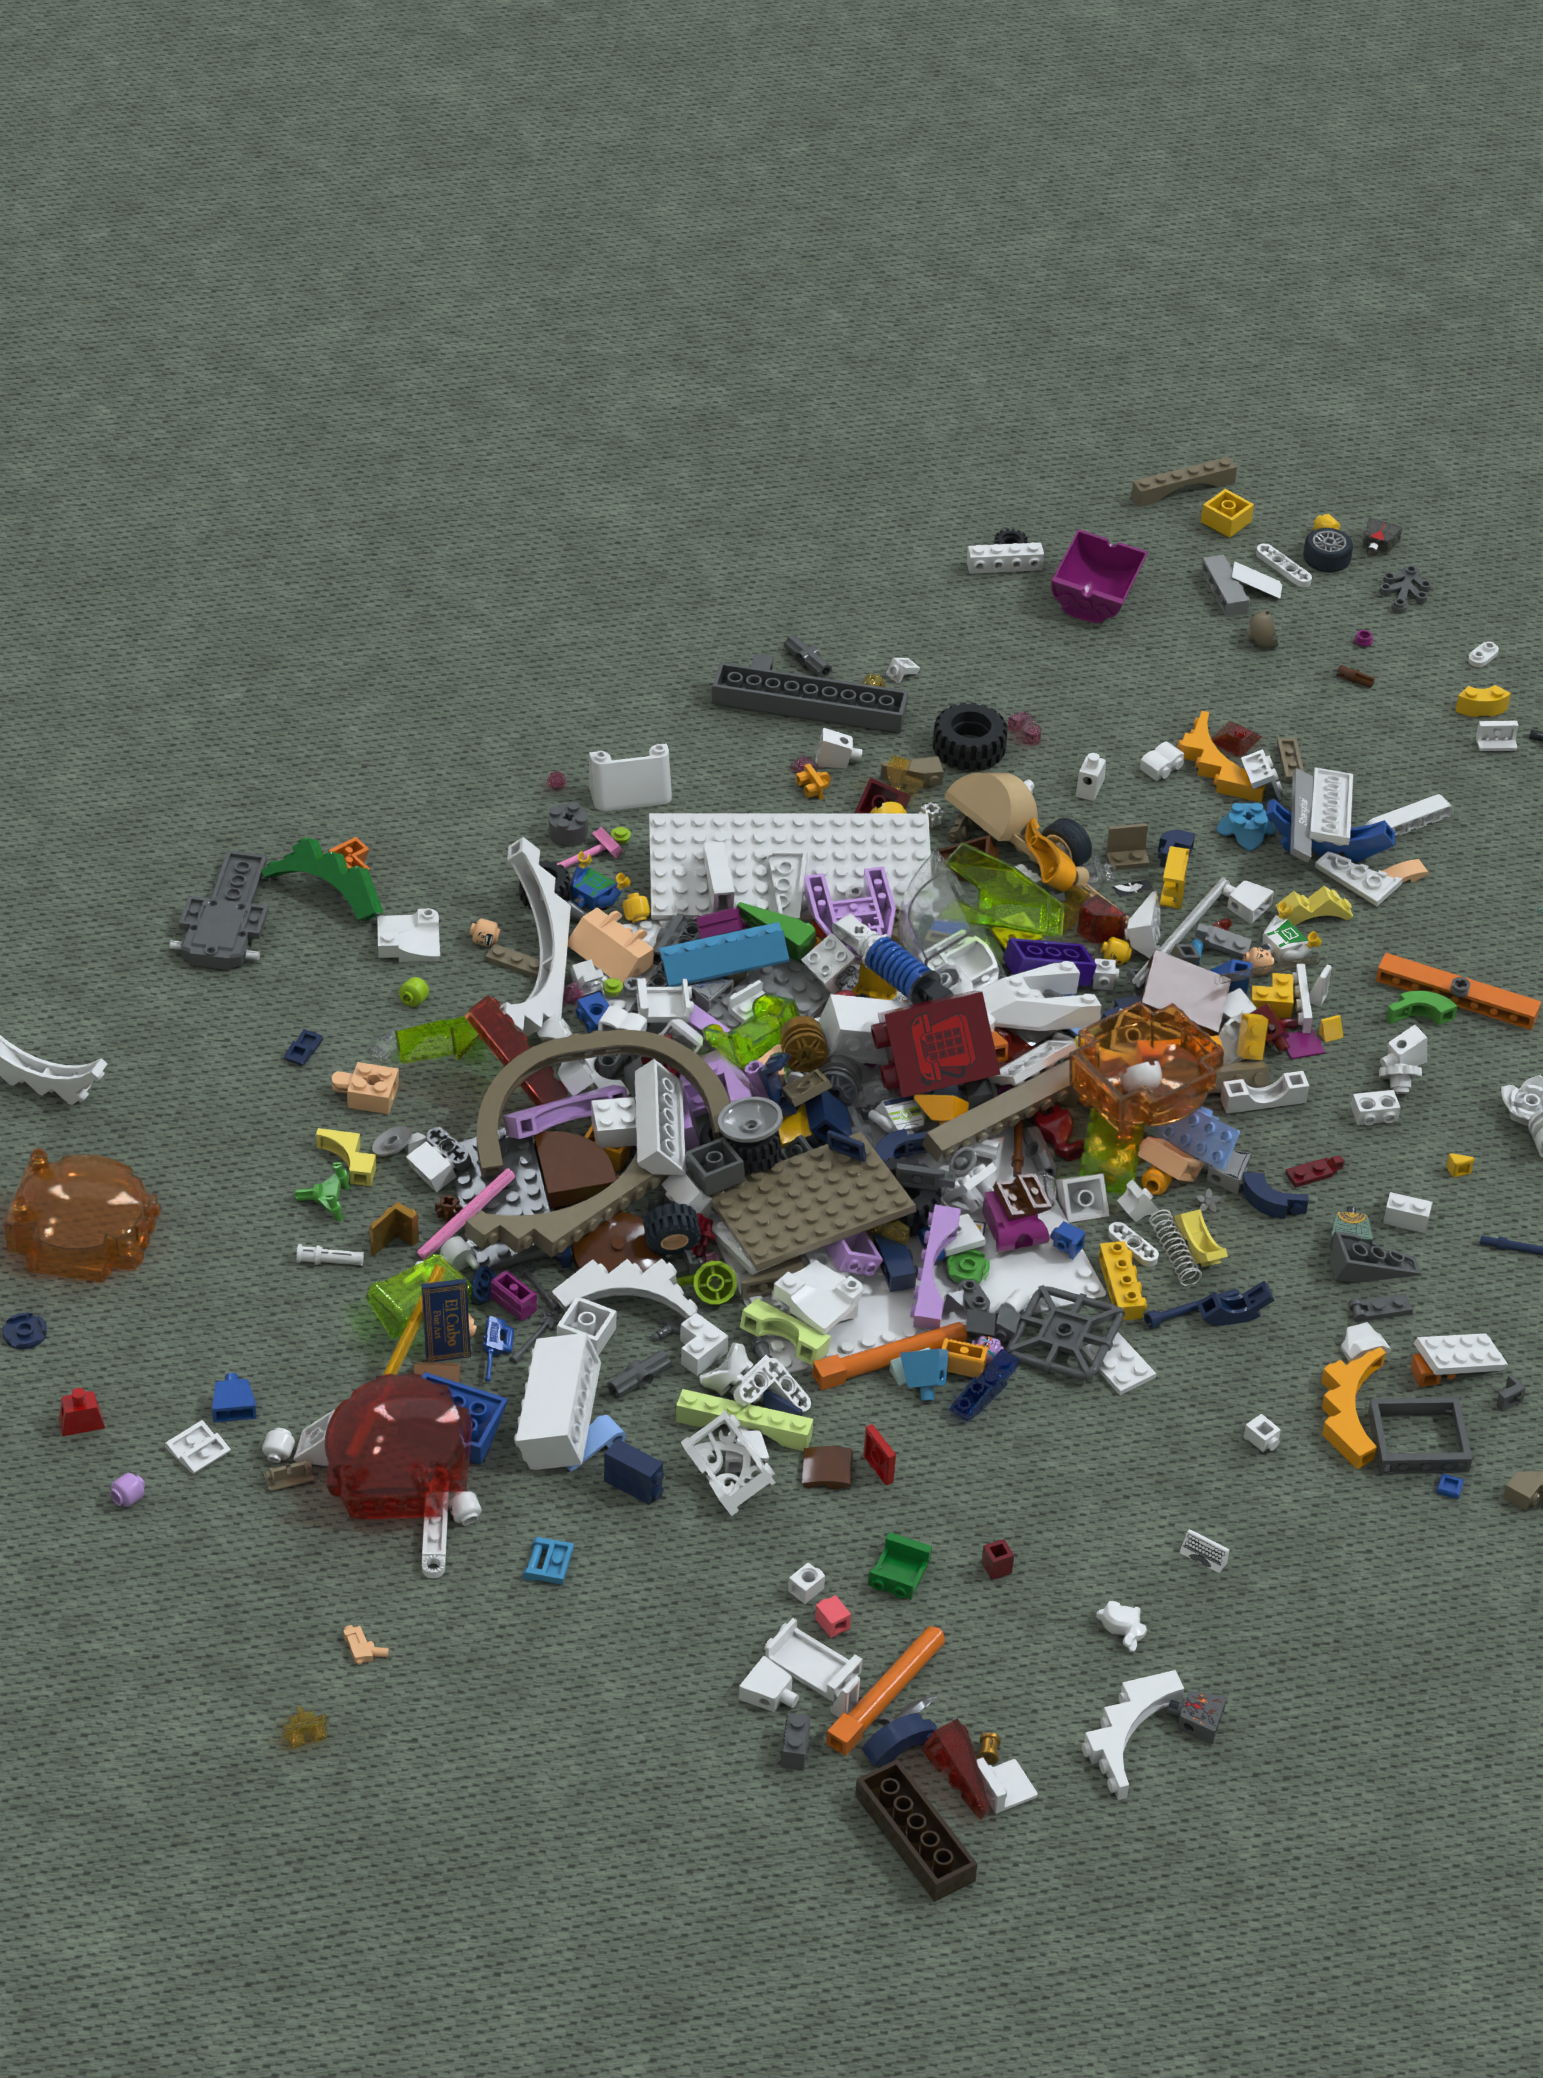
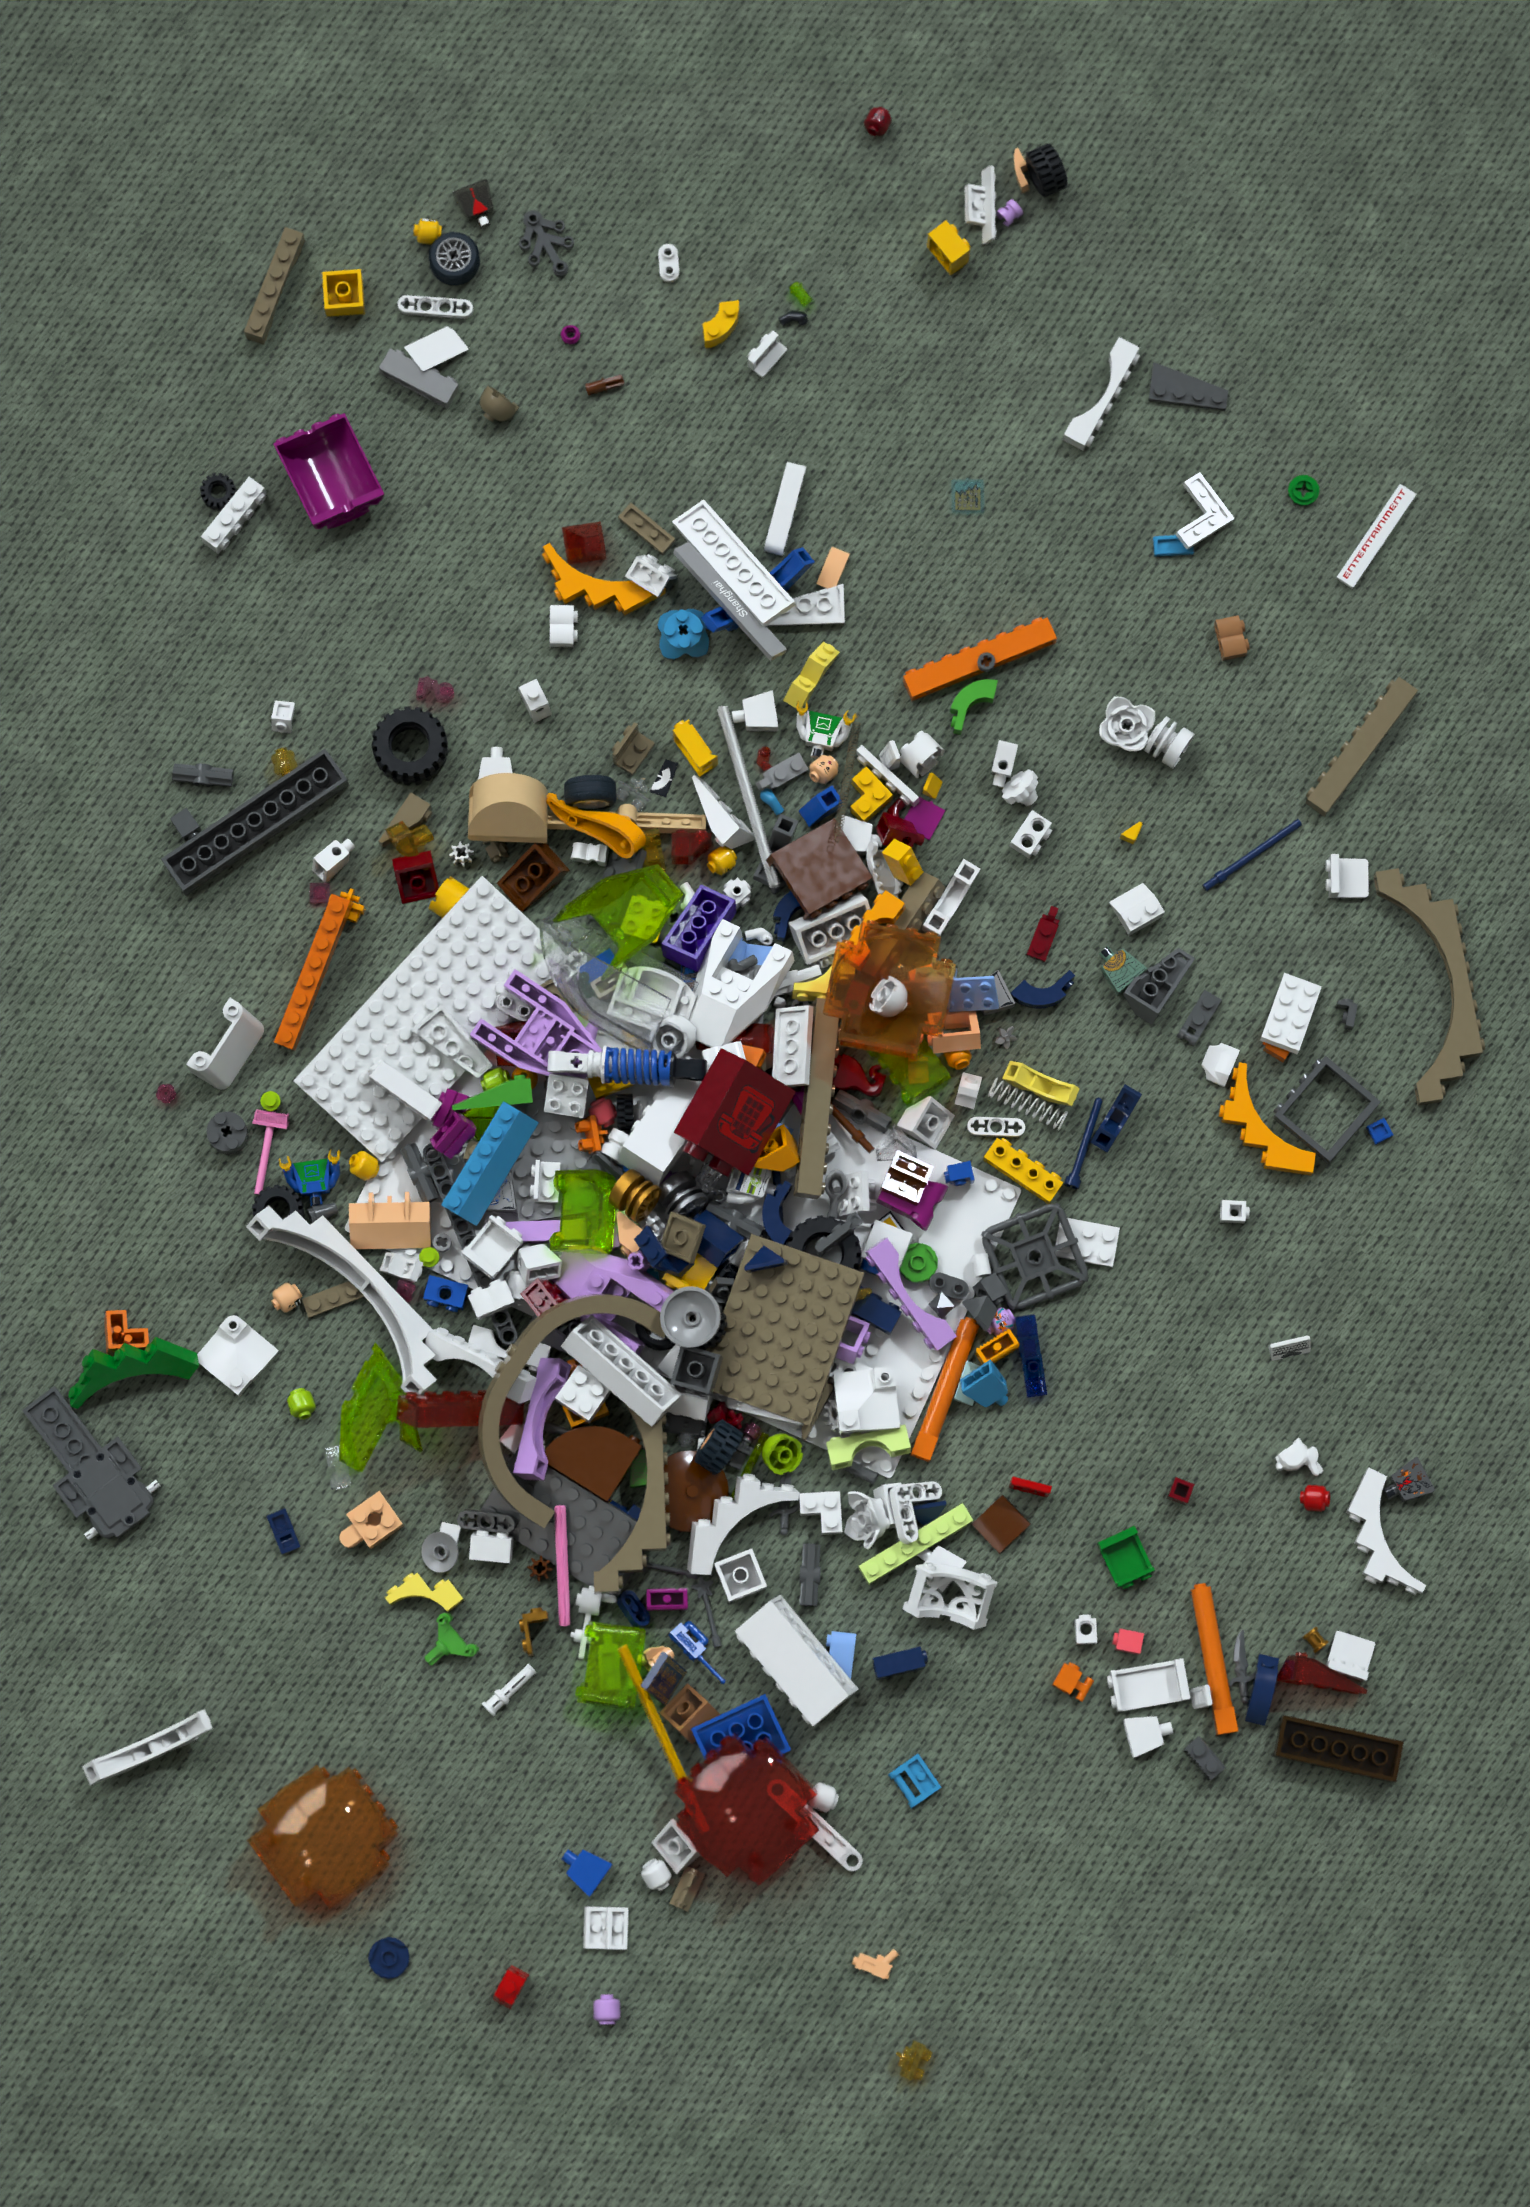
camera: 45 degrees left, 35 degrees up
(748, 785) = (313, 972): none -> orange brick
(753, 1603) = (1068, 1680): none -> orange brick
(820, 999) = (593, 1133): none -> orange hips
(1105, 1659) = (1315, 1498): none -> red head
(1174, 838) = (654, 706): dark blue brick -> none
(1345, 999) = (921, 754): none -> white brick

